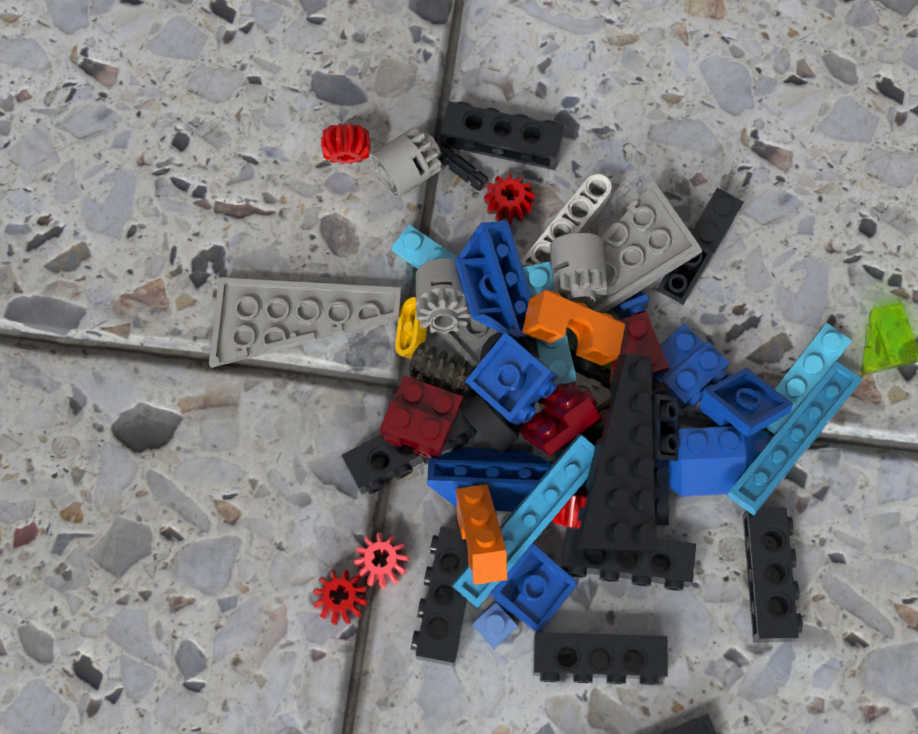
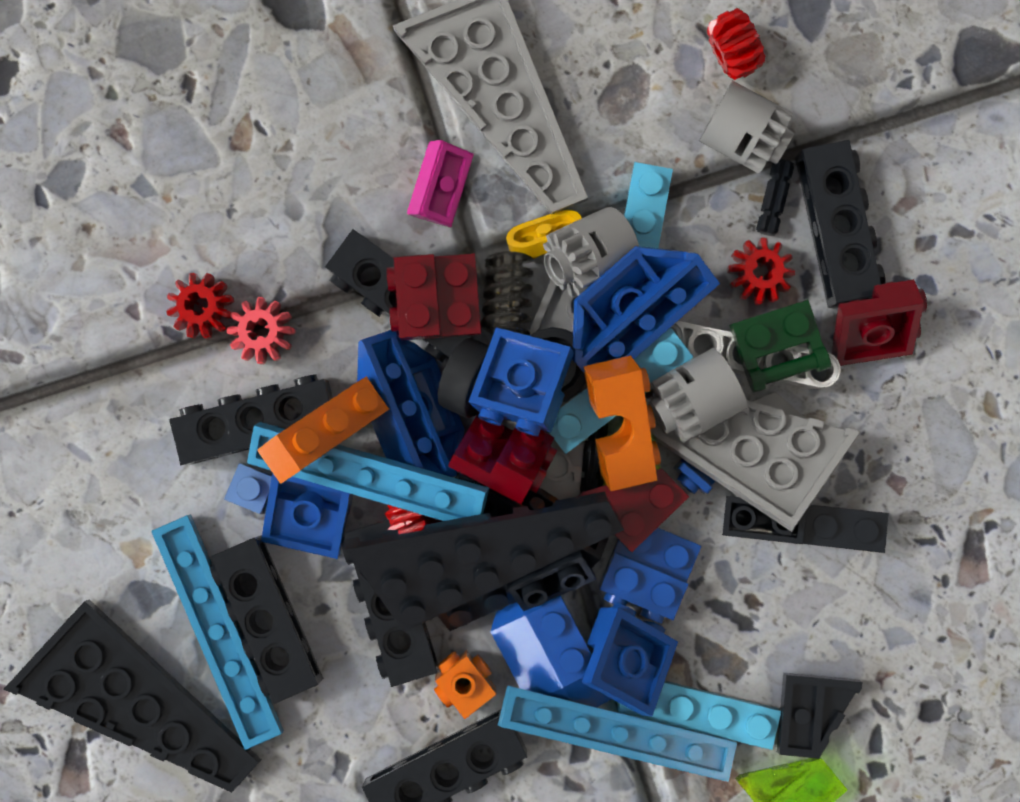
camera: 65 degrees right, 15 degrees up
(336, 386) = (440, 183): none -> dark pink slope
(558, 201) = (774, 333): none -> dark green plate
(585, 136) = (880, 325): none -> dark red plate
(593, 700) = (216, 633): none -> dark azure plate
(712, 529) = (466, 696): none -> orange brick
(836, 303) = (811, 712): none -> black wing

